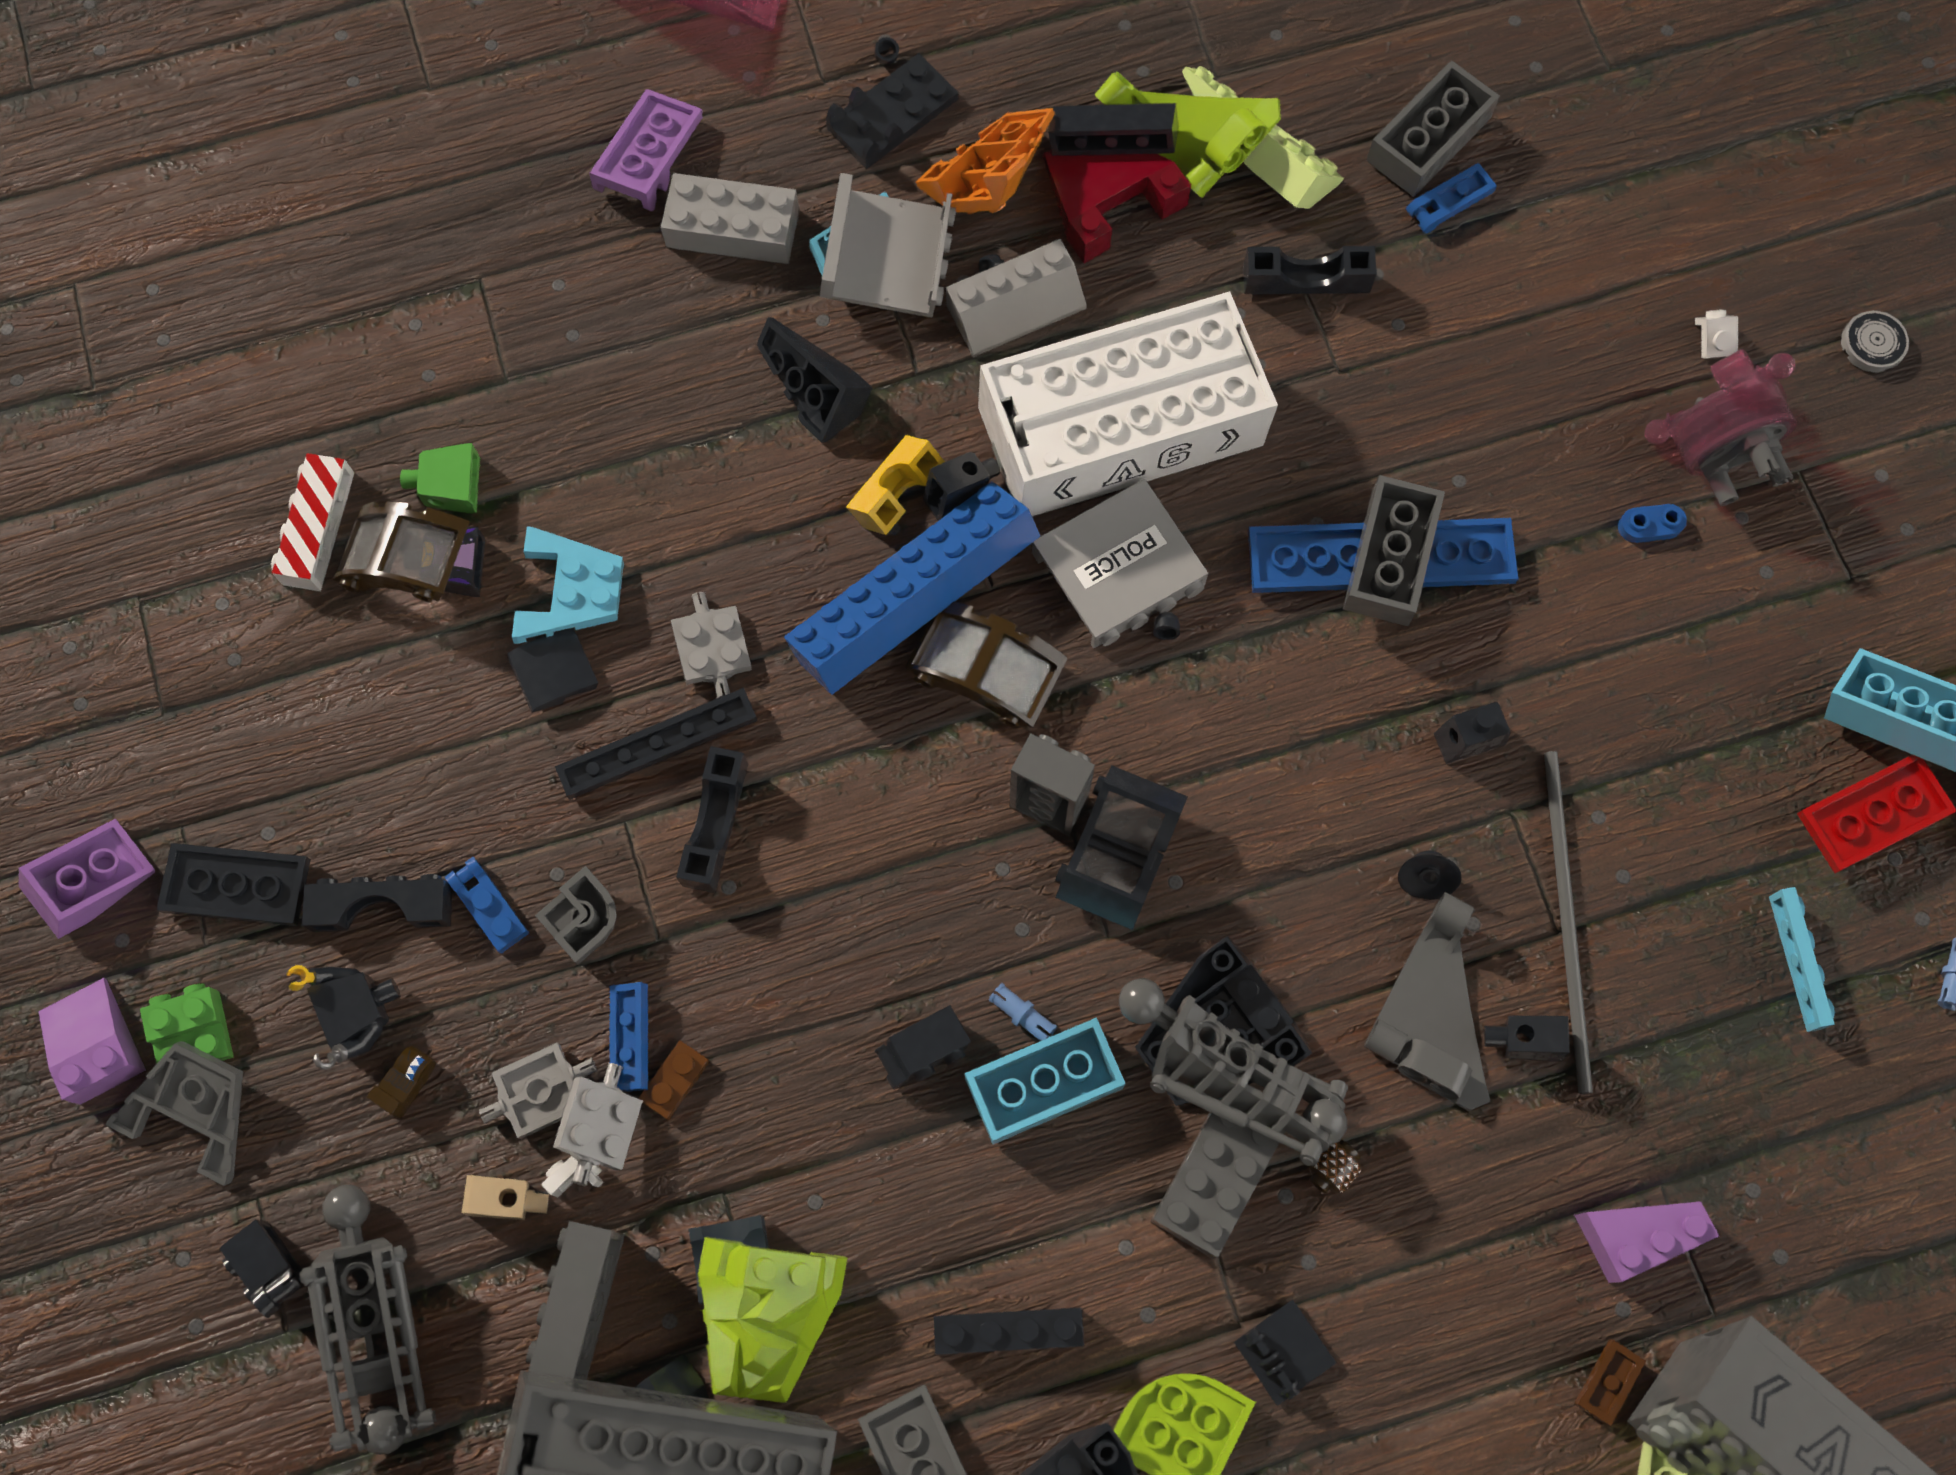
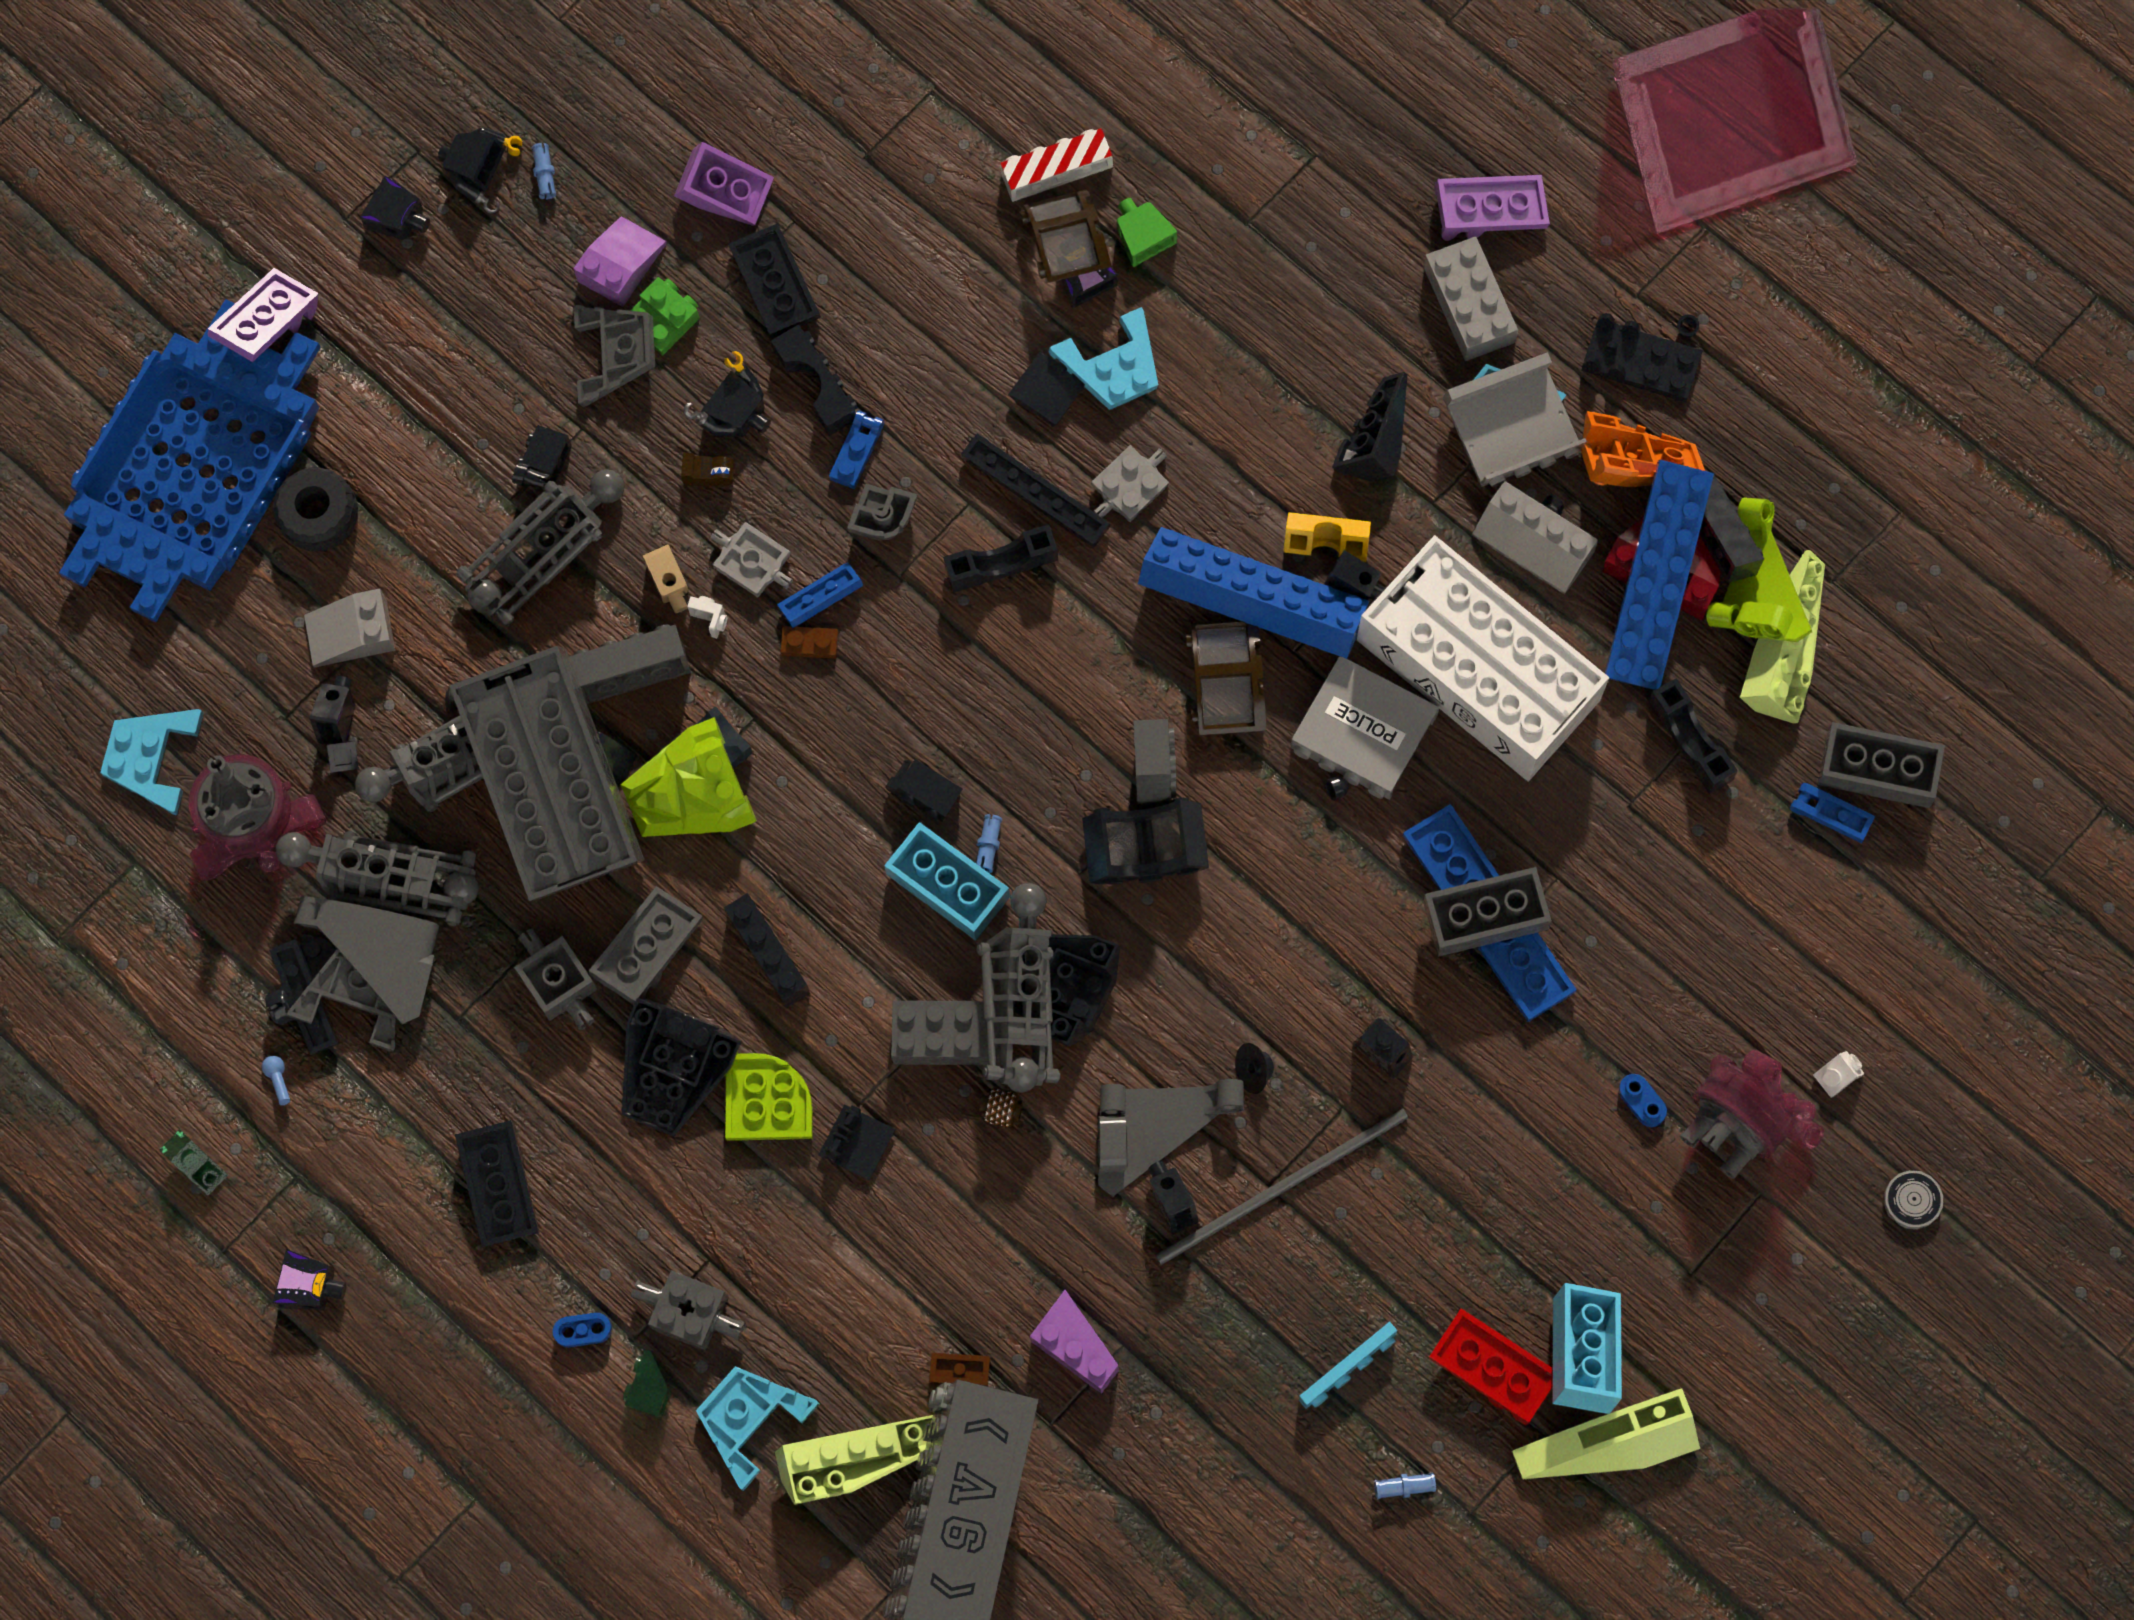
camera: 65 degrees right, 0 degrees up
(597, 1124) = (749, 608): light grey plate -> none
(1130, 201) = (1659, 575): none -> blue plate

